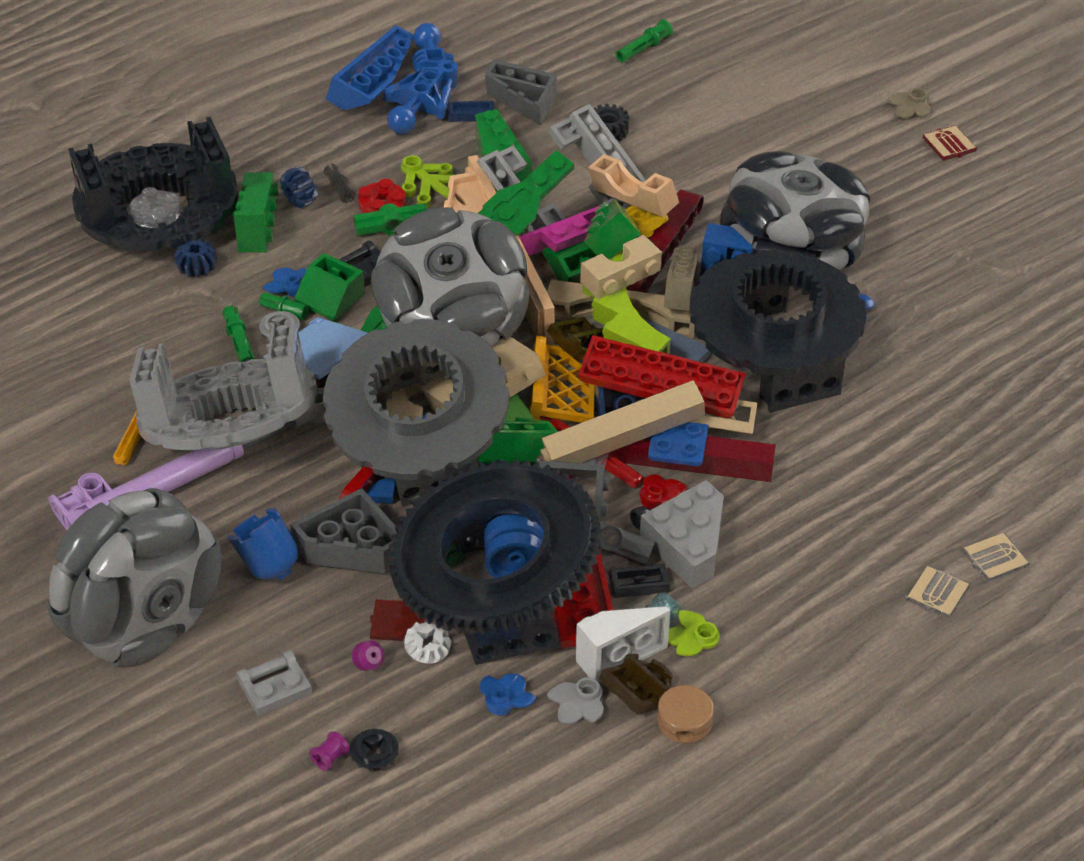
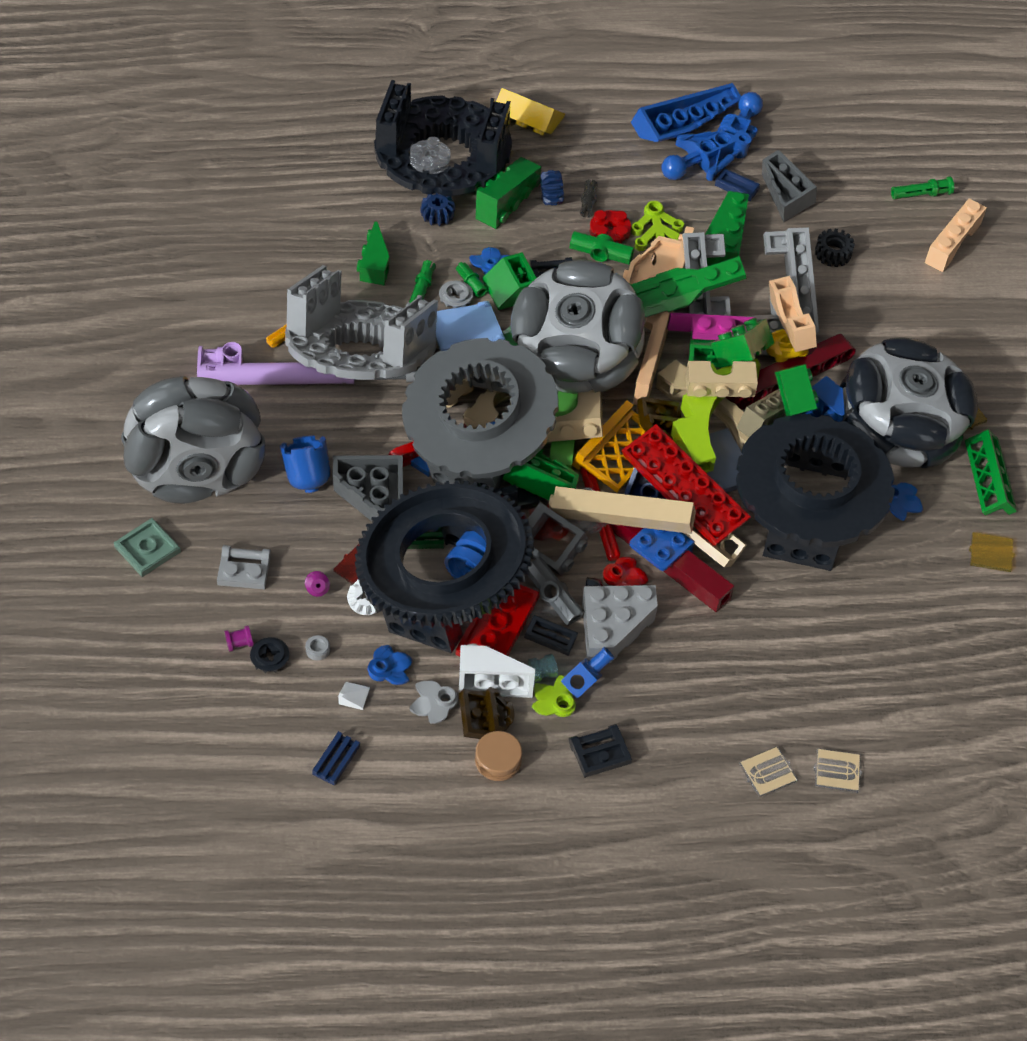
camera: 30 degrees right, 10 degrees up
(150, 719) = (147, 547): none -> sand green tile
(168, 328) = (375, 258): none -> green slope
(232, 130) = (531, 112): none -> yellow slope
(417, 717) = (317, 647): none -> light grey tile
(492, 741) = (353, 695): none -> white slope
(524, 788) = (346, 741): none -> dark blue tile
(699, 241) = (796, 389): none -> green slope
(708, 65) = (949, 240): none -> light nougat arch
(709, 588) = (589, 671): none -> blue bracket
(781, 661) = (603, 756): none -> black plate
(913, 240) = (998, 472): none -> green fence
(962, 308) = (991, 552): none -> clear yellow piece

